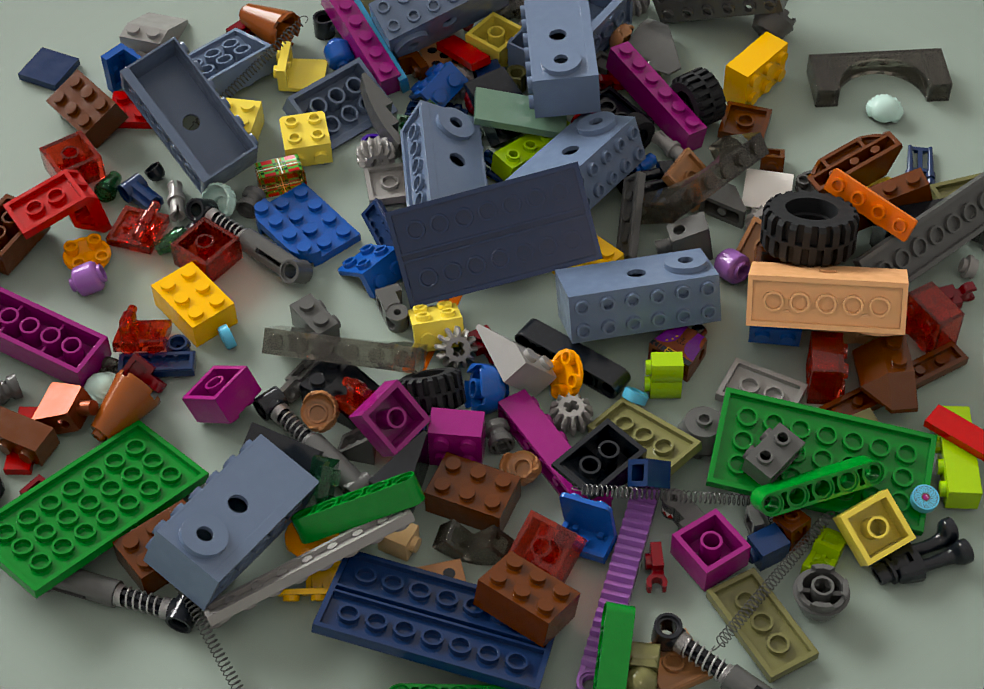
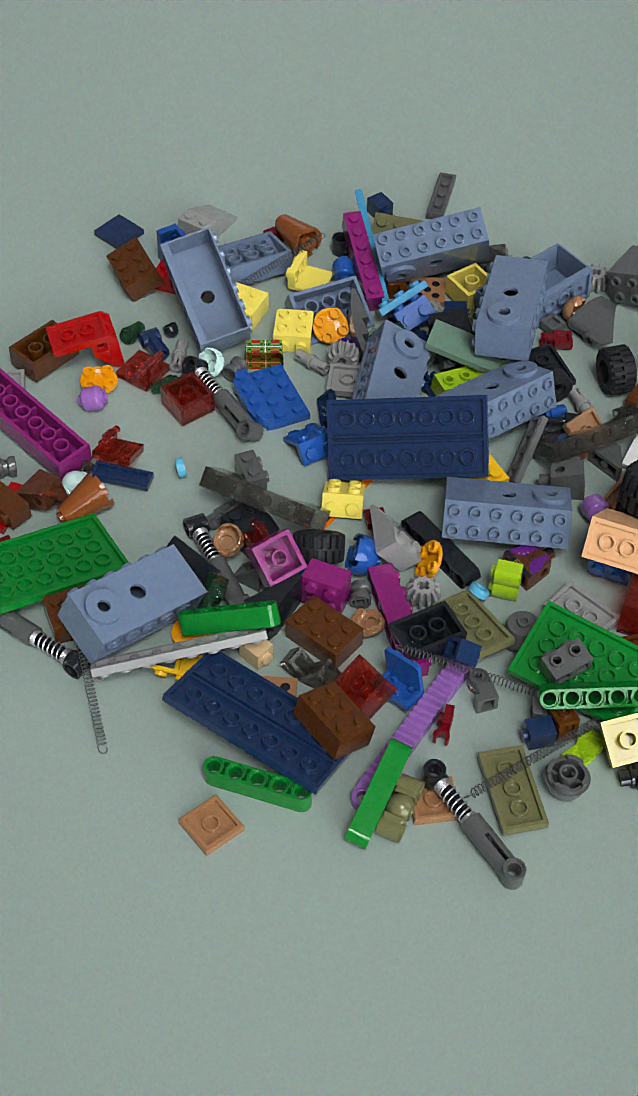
camera: 15 degrees right, 0 degrees up
(73, 153) = (113, 301): clear red brick -> none
(144, 371) = (108, 477): dark red plate -> none
(178, 343) = (143, 463): dark blue plate -> none
(194, 303) = (164, 436): yellow brick -> none
(222, 394) = (160, 509): magenta brick -> none
(339, 171) = (311, 361): none -> light grey pin
(348, 123) = (330, 325): none -> light orange dish
(391, 308) = (314, 478): dark grey leg -> none
(421, 71) = (400, 297): none -> dark azure plate
(463, 53) = (441, 290): red tile -> none
(464, 342) = (358, 518): light grey gear -> none
(655, 96) = (583, 360): magenta brick -> none
(710, 549) = (492, 722): magenta brick -> none

